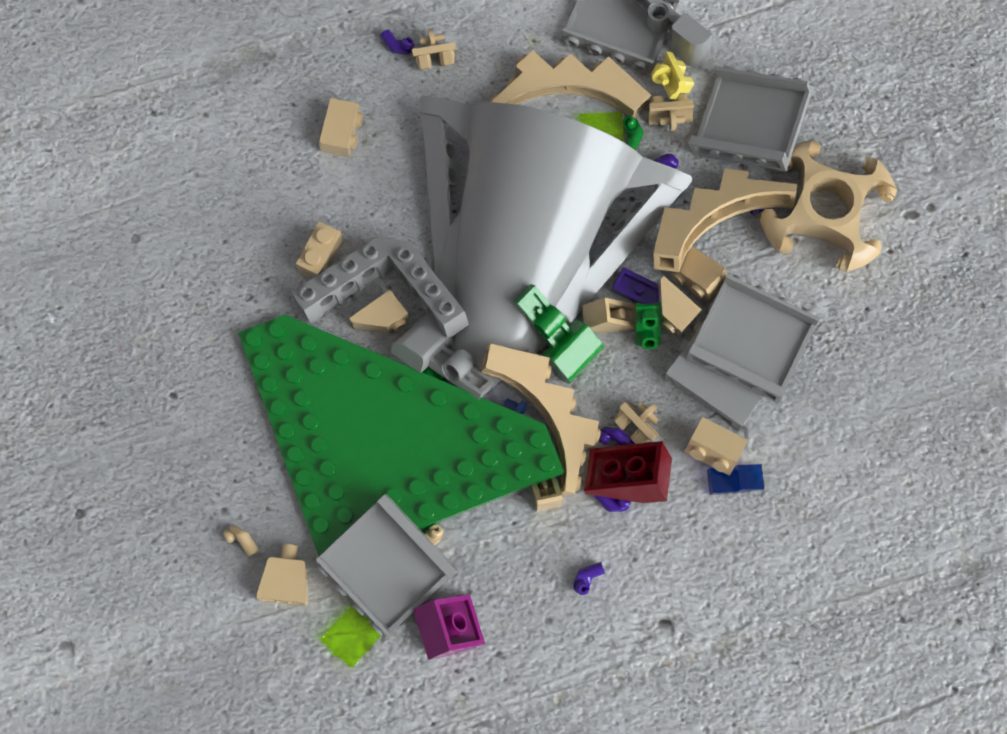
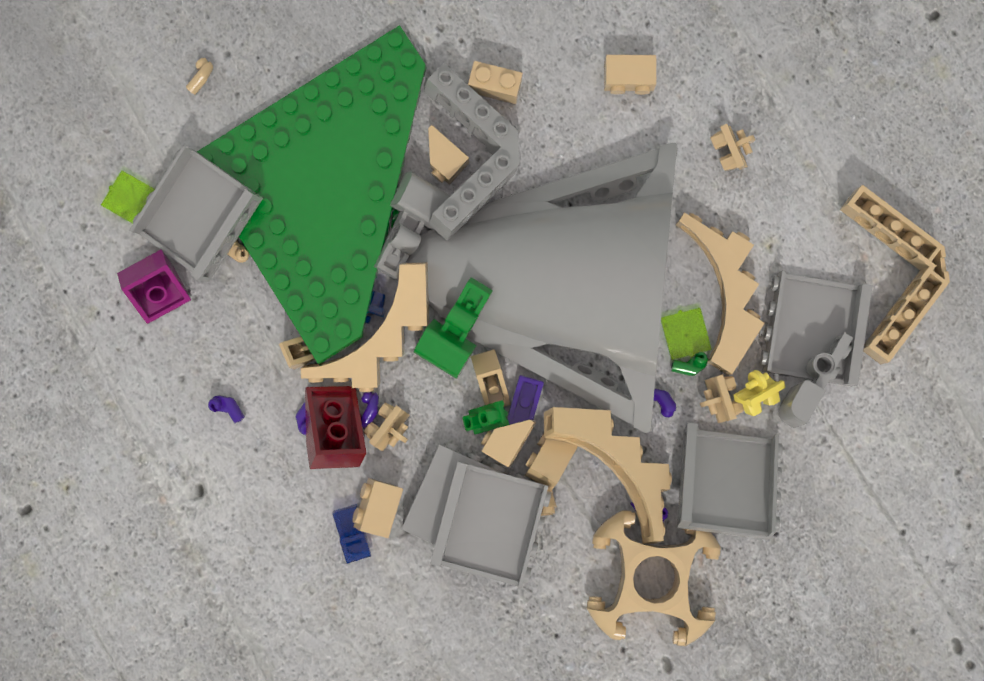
camera: 80 degrees right, 10 degrees up
(284, 579) = (168, 124): tan torso -> none
(397, 46) = (731, 109): dark purple arm -> none

